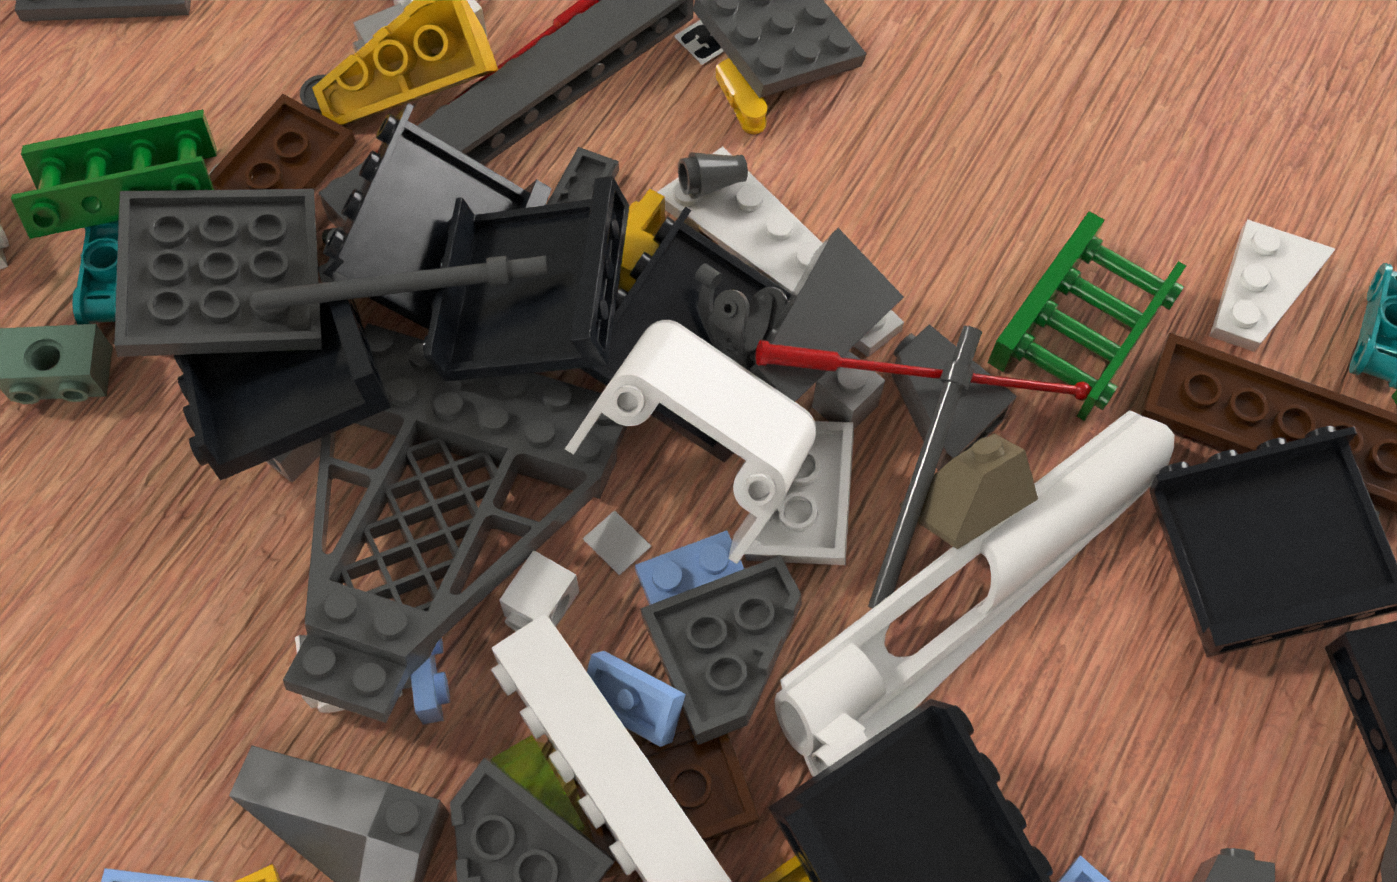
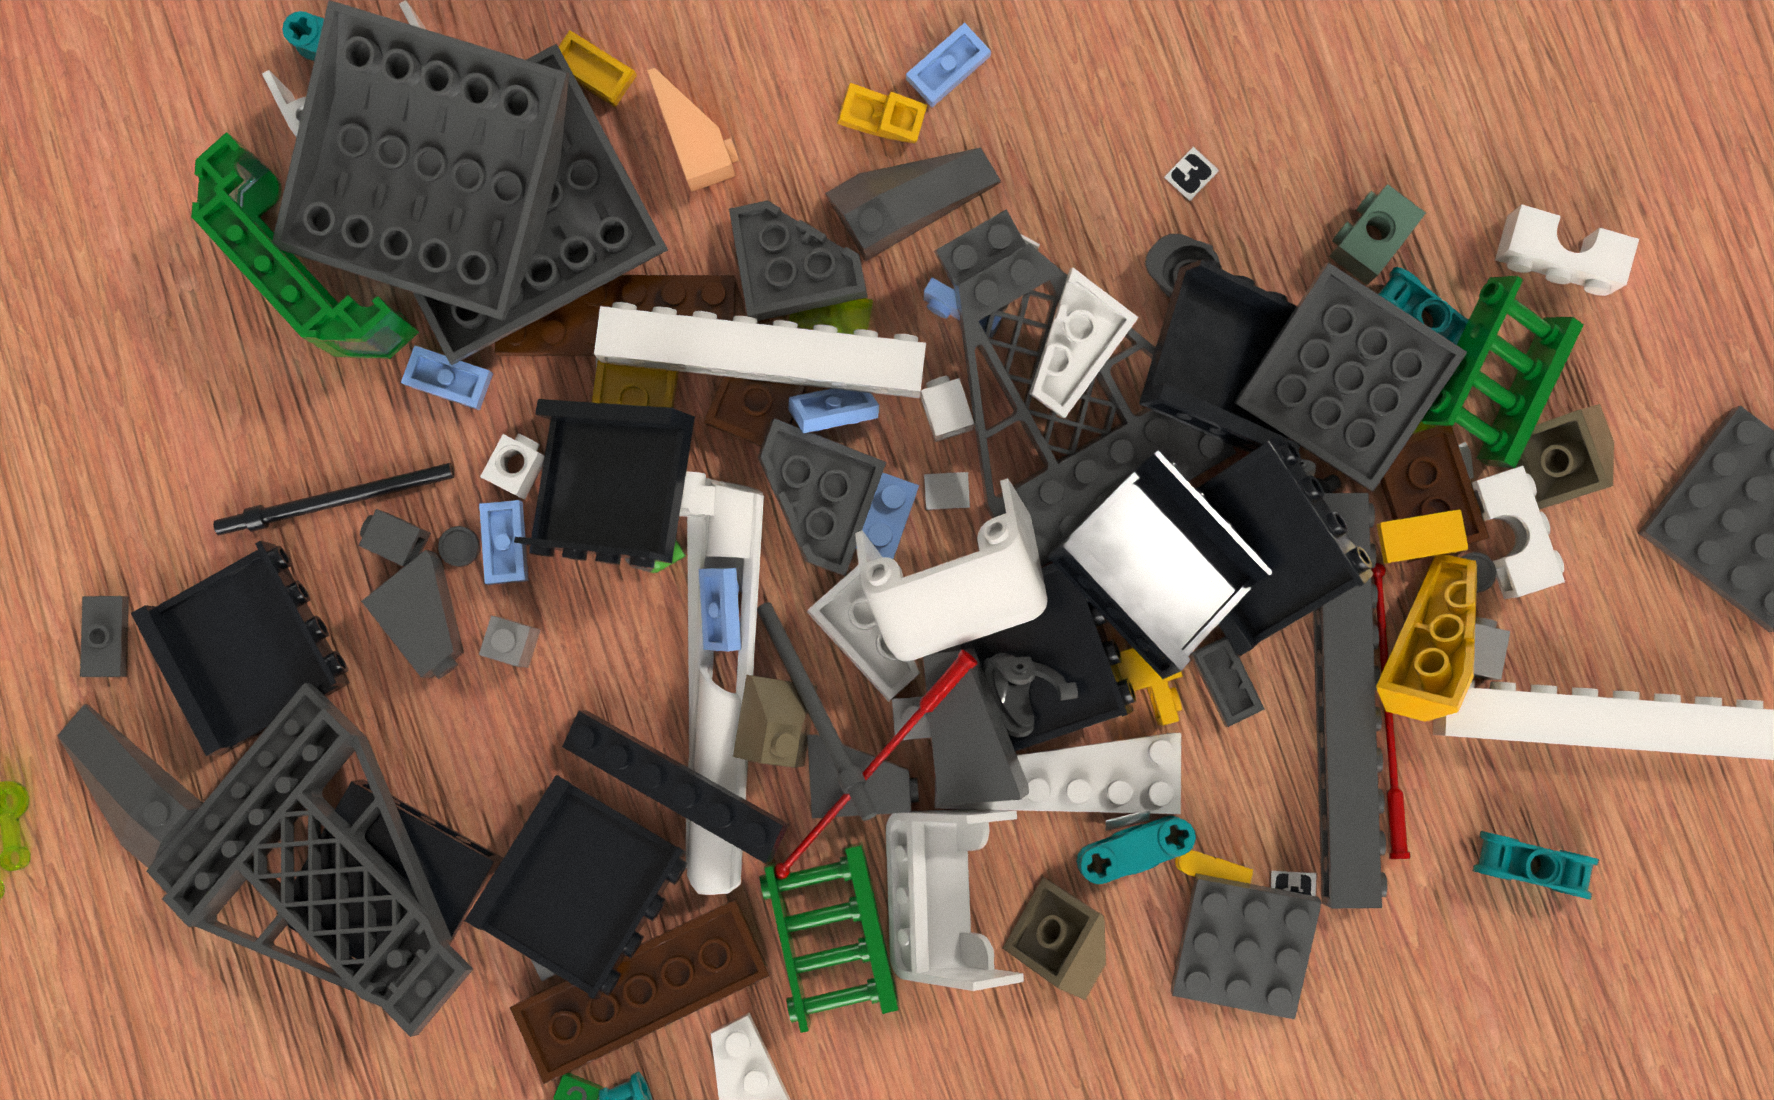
camera: 140 degrees right, 20 degrees up
(106, 574) = (1191, 173): none -> sticker
(160, 82) = (1570, 456): none -> dark tan slope
(210, 507) = (1173, 253): none -> dark grey hat
(277, 56) = (1532, 561): none -> white arch
(324, 134) = (1422, 536): none -> yellow tile
(373, 501) = (1079, 342): none -> white wing
(496, 271) = (1181, 543): dark grey bar -> none
(707, 173) = (1156, 773): dark grey cone -> none
(767, 178) = (1127, 820): none -> white sticker
(785, 153) = (1136, 849): none -> teal piece
(909, 153) = (1060, 939): none -> dark tan slope
(921, 633) = (720, 609): none -> light blue plate
(991, 260) = (932, 899): none -> white windscreen
(1114, 536) = (676, 786): none -> black plate
(1149, 812) = (509, 642): none -> light grey brick

